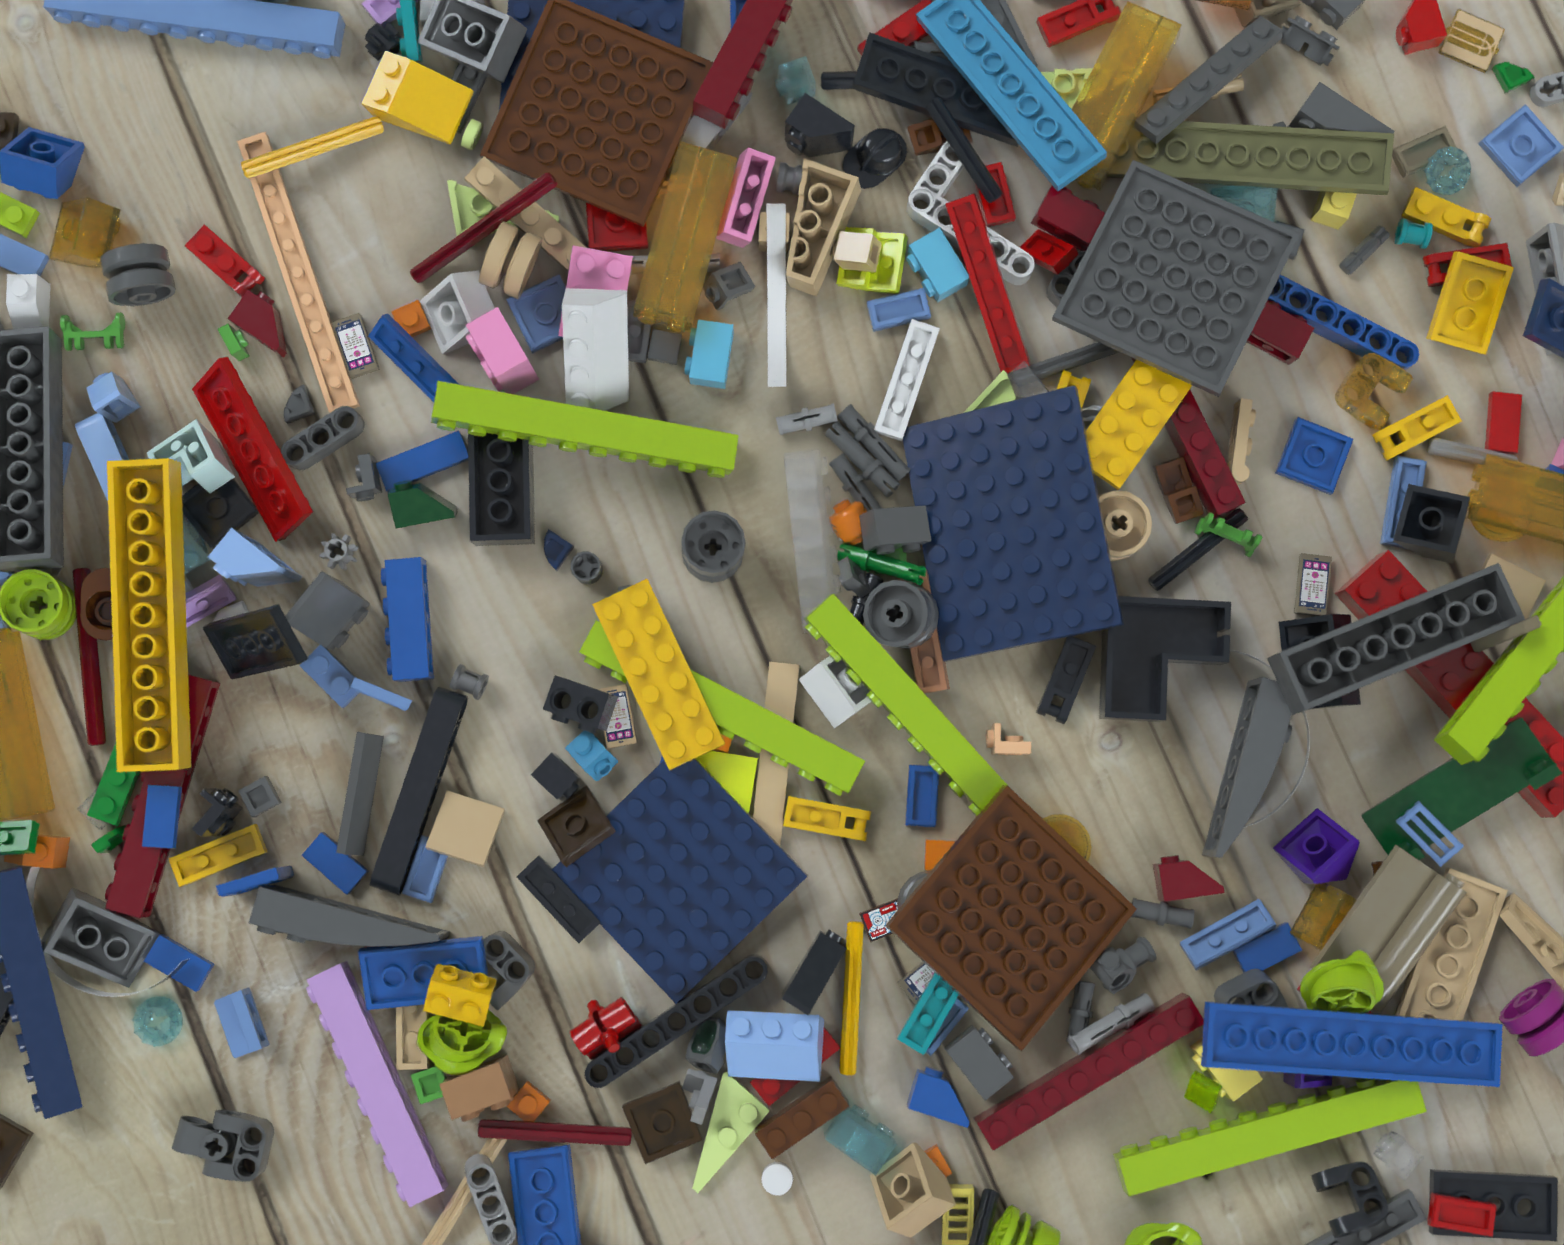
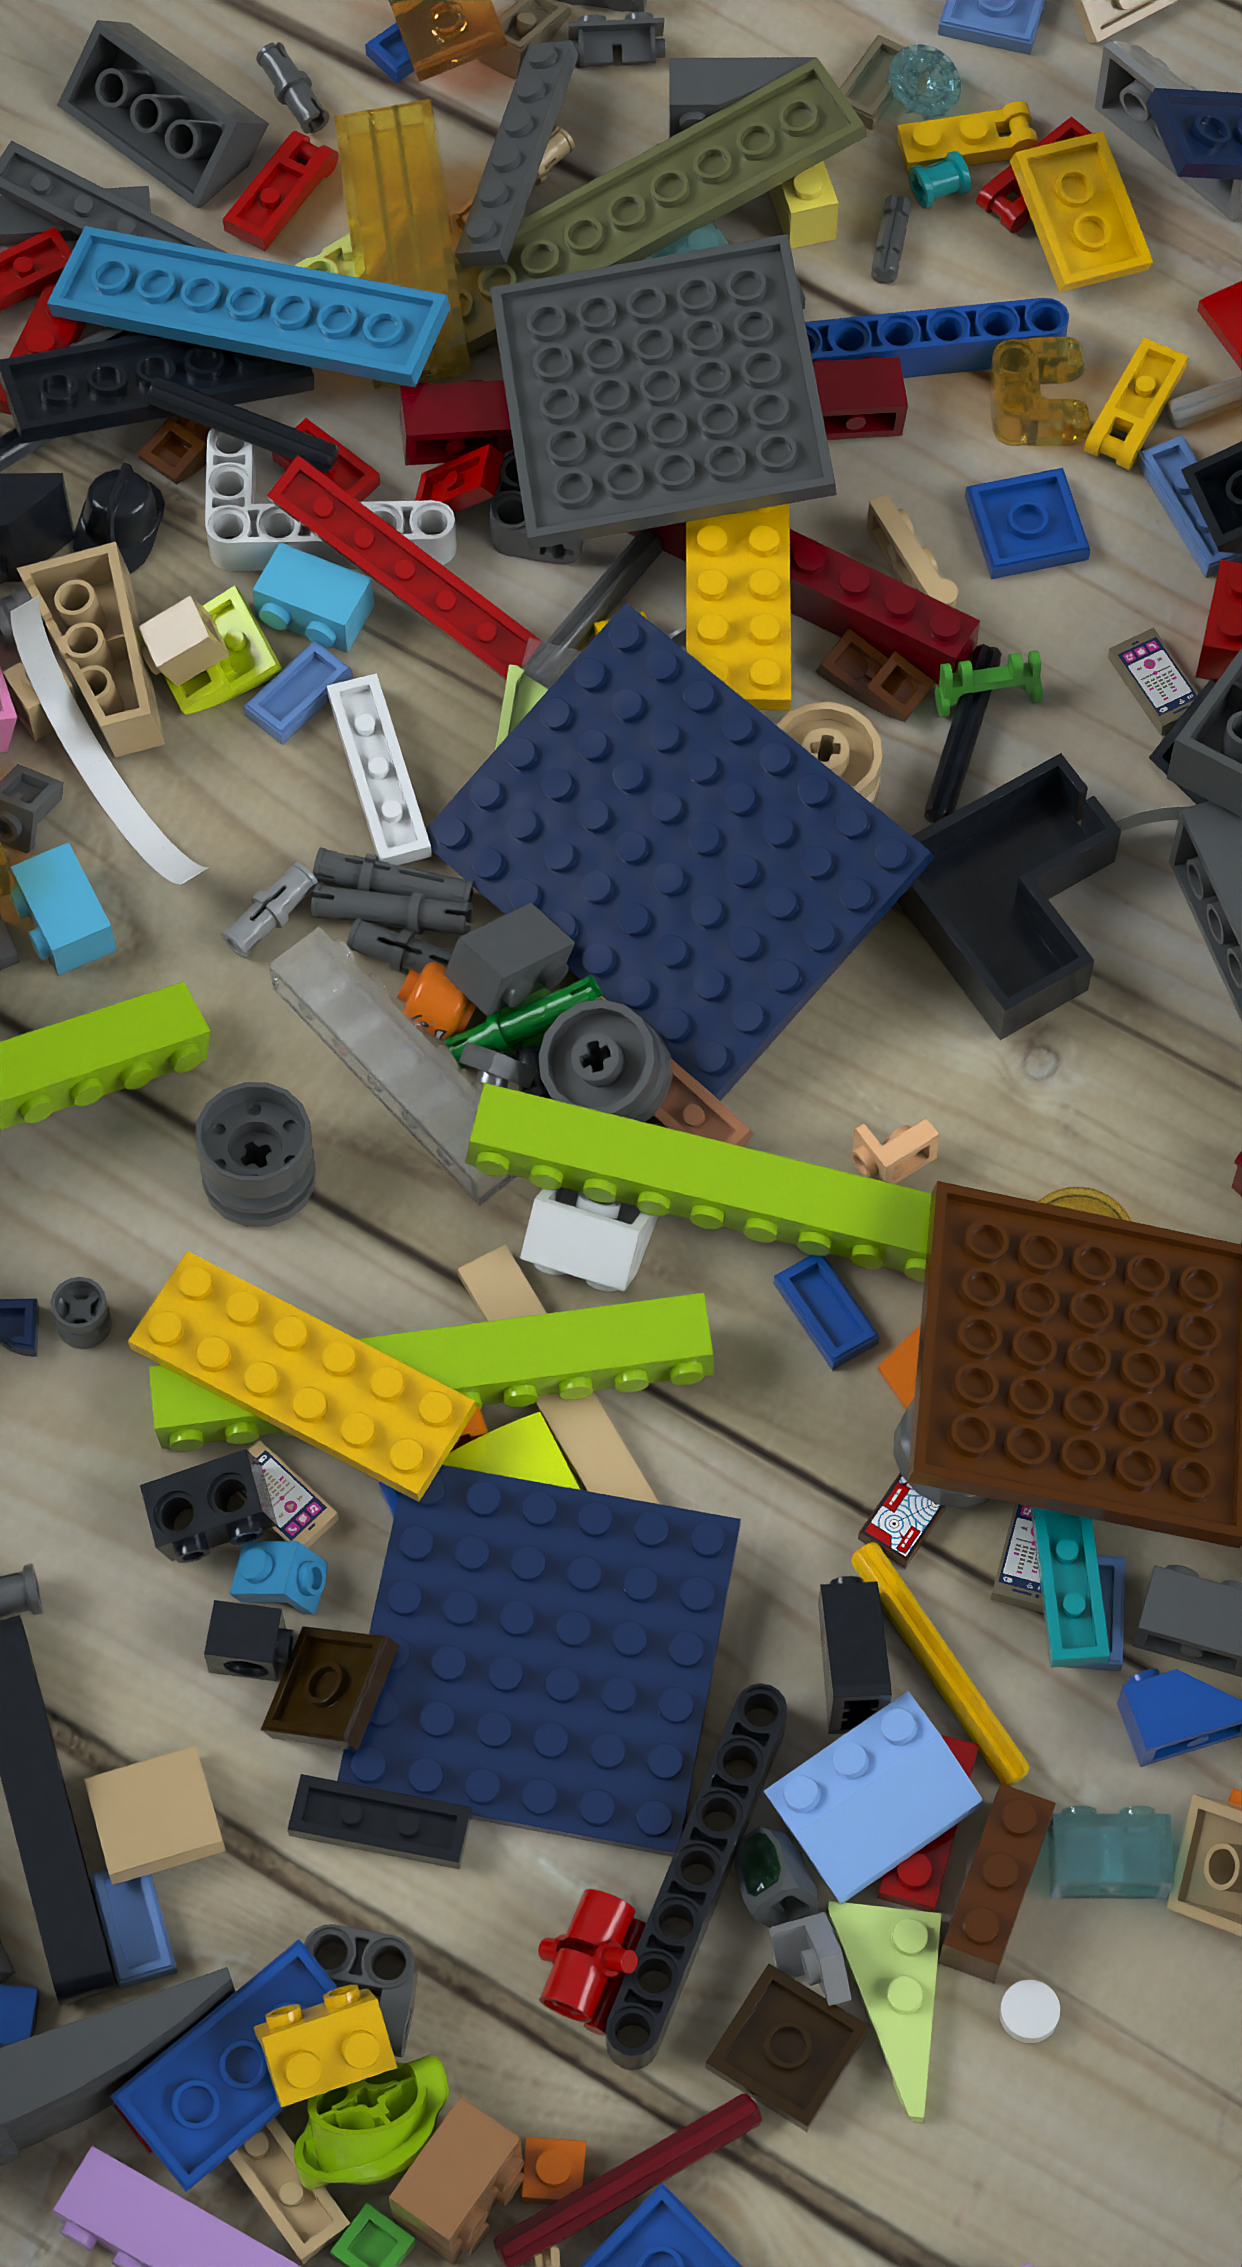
camera: 35 degrees left, 20 degrees down
(825, 818) = (706, 1431): yellow plate -> none
(1066, 678) = (911, 1013): black plate -> none

